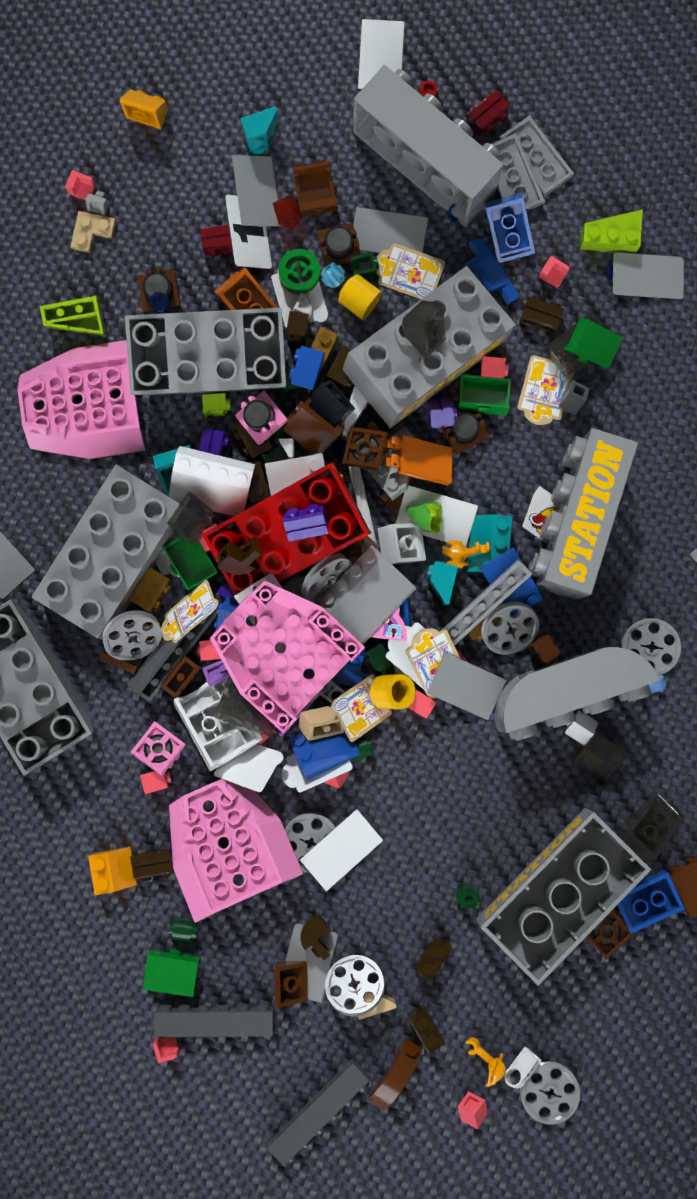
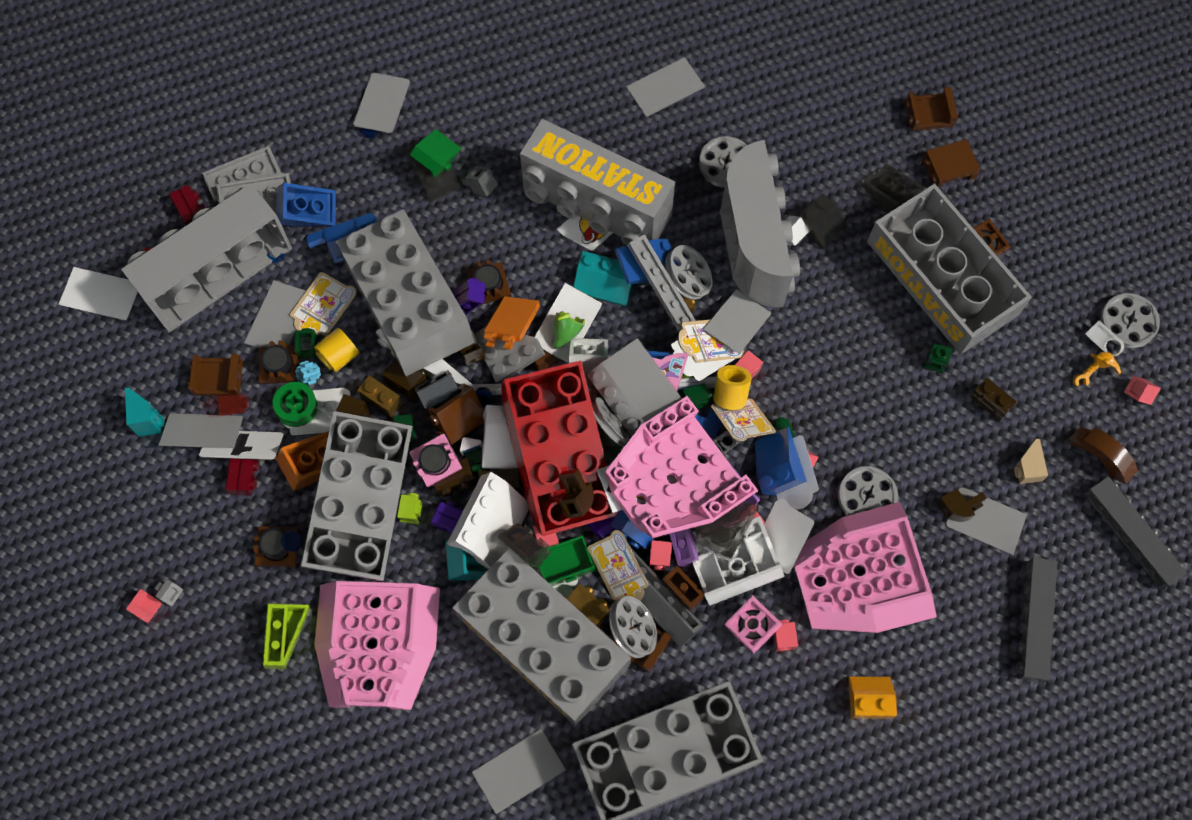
camera: 80 degrees left, 15 degrees down
(89, 225) = (189, 607): tan plate -> none
(144, 108) = (83, 524): light orange slope -> none
(152, 864) = (870, 654): dark brown brick -> none
(166, 1048) = (1062, 672): coral panel -> none
(171, 972) = (984, 655): green container -> none
(183, 930) = (942, 635): dark green brick -> none
(290, 983) = (1005, 539): reddish brown slope -> none
(305, 522) = (557, 415): brick -> none
(307, 367) = (396, 405): blue brick -> none
(319, 723) = (752, 458): tan brick -> none
(341, 850) = (879, 466): white sticker -> none
(363, 987) = (1007, 468): wedge -> none
(364, 450) = (490, 367): reddish brown piece -> none
(425, 327) = (388, 277): clear smoke slope -> none
(426, 1029) = (1061, 417): dark brown brick -> none
(442, 580) = (633, 324): teal slope -> none
(458, 552) = (607, 308): light orange piece -> none
(484, 395) = (460, 257): green container -> none
(493, 367) = (437, 245): coral brick -> none
(542, 314) = (395, 195): dark brown brick -> none
(542, 391) = (468, 210): sticker -> none
(544, 650) = (715, 246): reddish brown brick -> none
(554, 272) = (357, 178): coral panel -> none
(613, 234) = (336, 121): lime wedge -> none
(650, 901) = (965, 196): blue slope -> none

